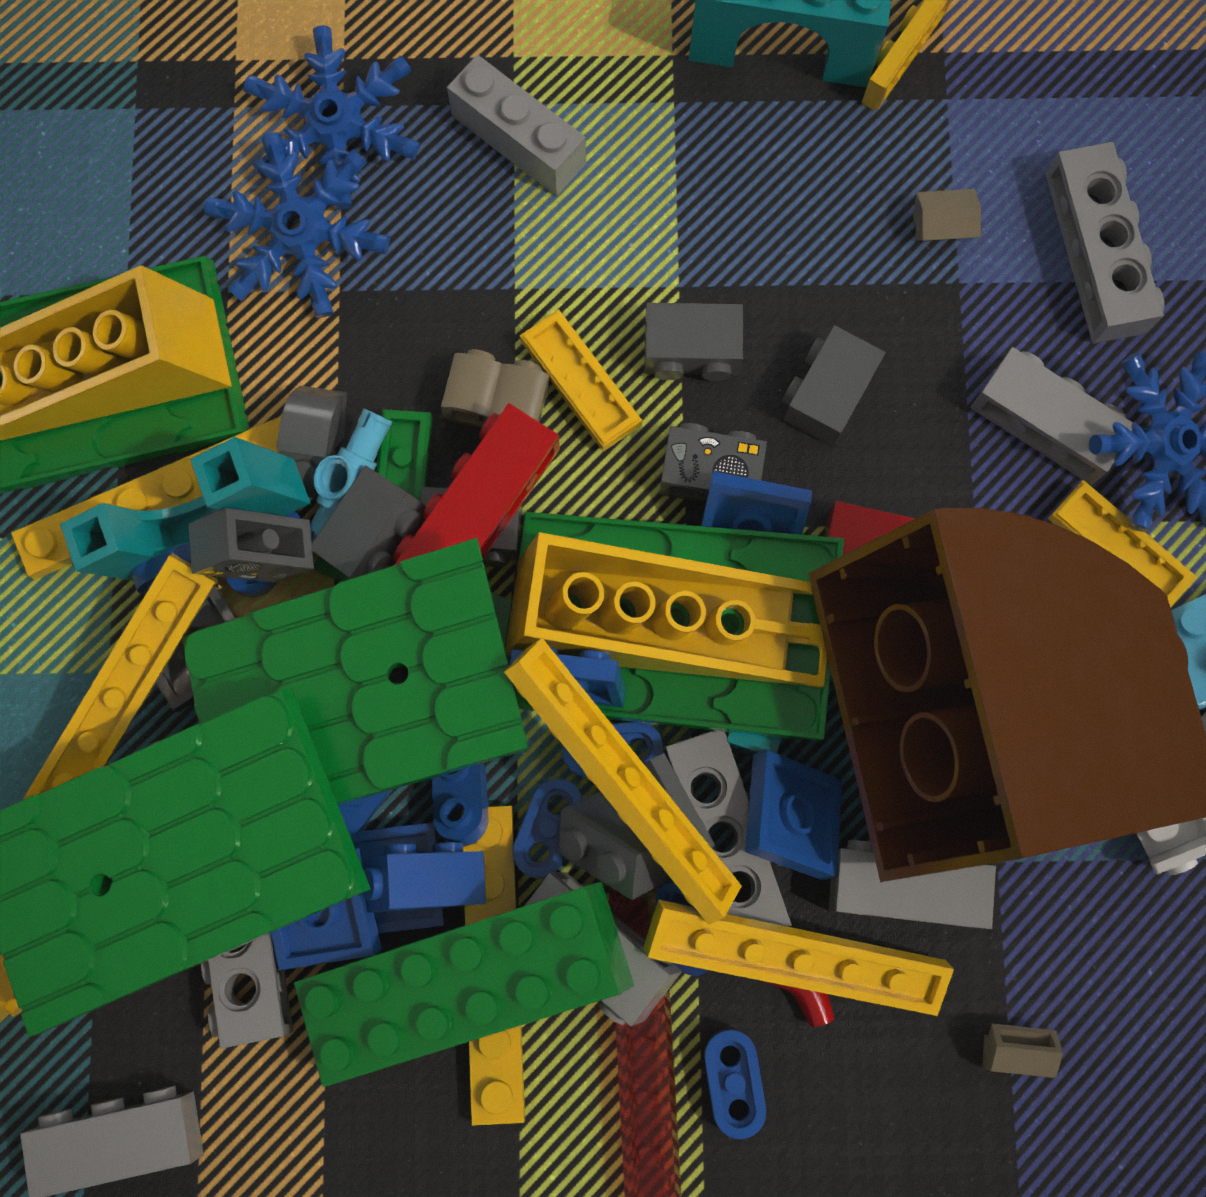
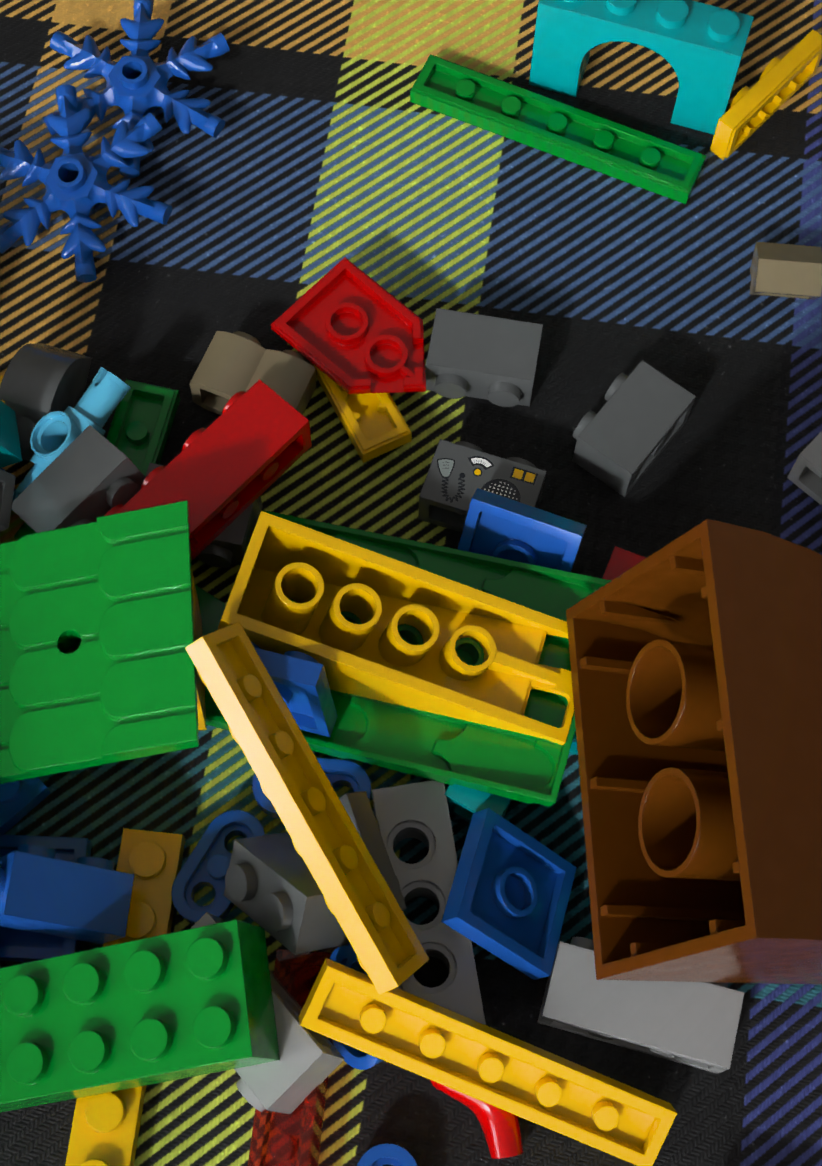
camera: 10 degrees right, 10 degrees down
(460, 791) = (127, 800): blue plate -> none
(517, 125) = (331, 117): light grey brick -> none
(579, 336) = (357, 333): none -> red tile
(721, 102) = (558, 129): none -> green tile

